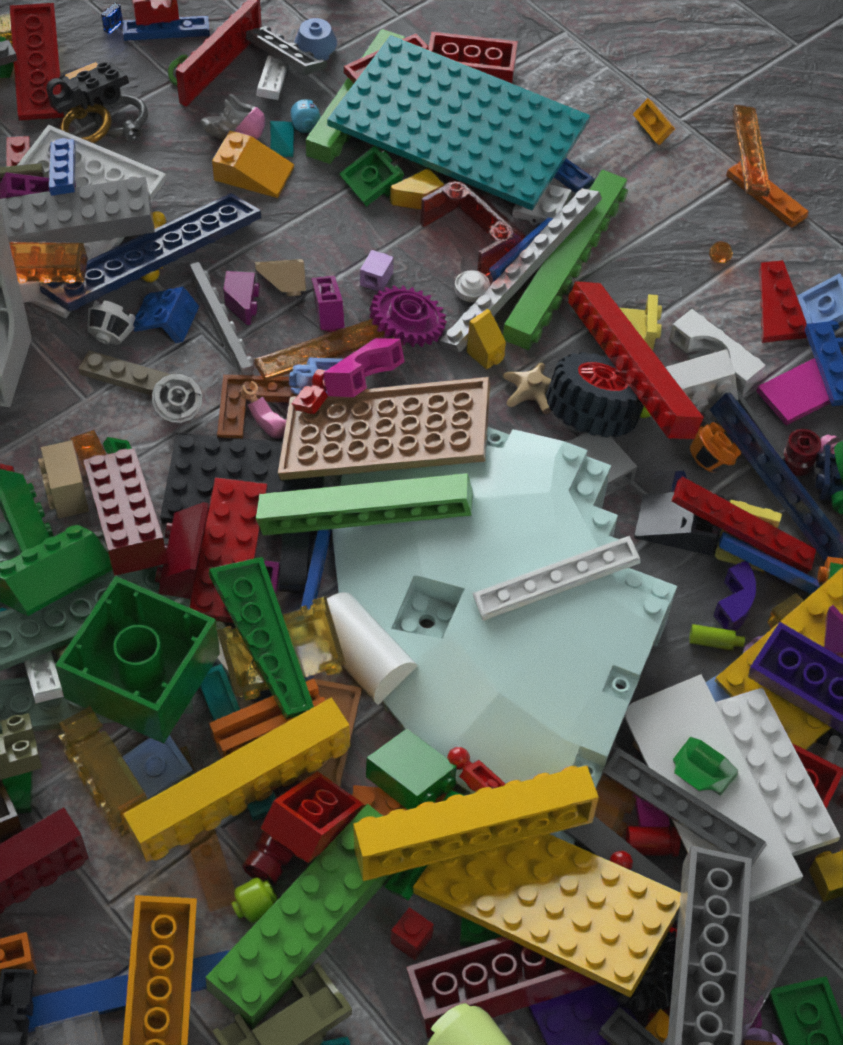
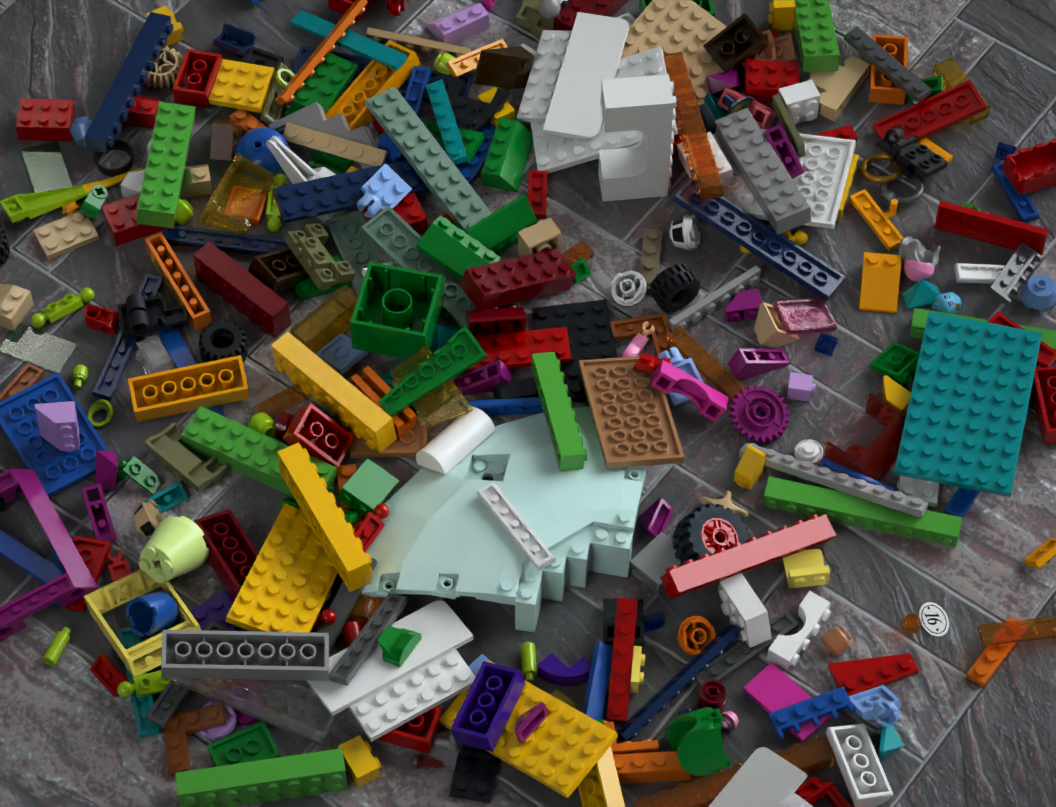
camera: 80 degrees right, 0 degrees up
(62, 166) = (805, 157): plate -> none
(81, 908) = (222, 334): none -> black tyre
(161, 146) = (877, 219): none -> light orange plate
(168, 309) = (711, 266): blue bracket -> none
(197, 348) = (674, 288): none -> black tyre
(277, 241) = (805, 316): none -> clear pink tile
(318, 236) = (826, 344): none -> clear blue tile
(412, 933) = (258, 514): red brick -> none
(709, 234) = (934, 619): none -> white sticker
(737, 321) = (835, 641): none -> nougat head

